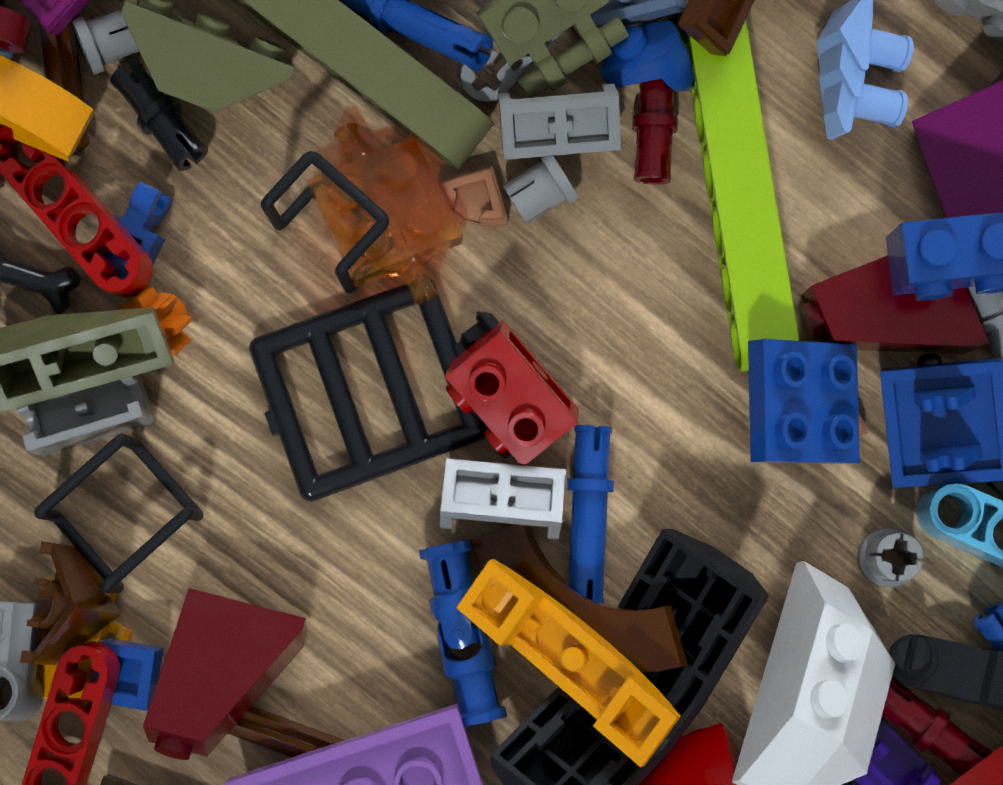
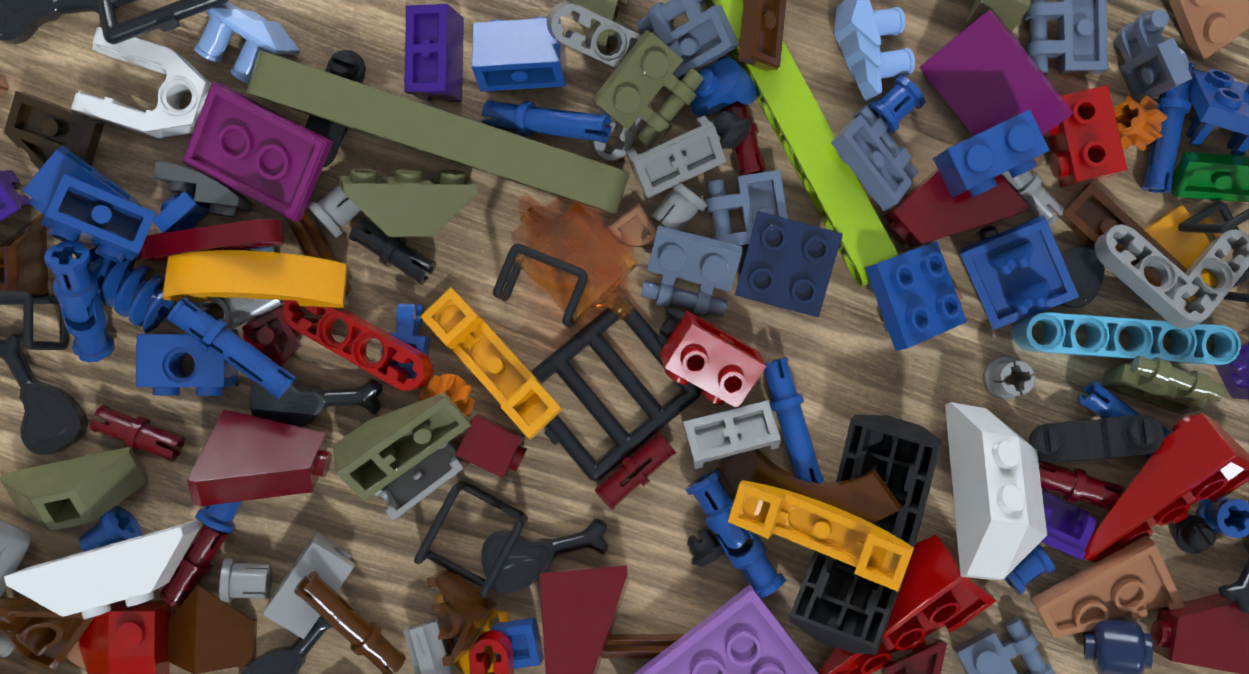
camera: 20 degrees left, 5 degrees up
(179, 565) = (534, 557): none -> black piece
(190, 405) = (492, 446): none -> dark red brick
(230, 298) = (492, 363): none -> light orange slope
(324, 518) = (612, 490): none -> dark red pin
(416, 640) = (704, 550): none -> black piece
(536, 260) = (694, 260): none -> sand blue plate
(640, 111) = (731, 129): none -> black piece
(645, 236) = (755, 193): none -> sand blue plate
(654, 306) = (788, 264): none -> dark blue hinge
(813, 211) = (875, 158): none -> sand blue plate
(885, 156) = (898, 103): none -> blue bush

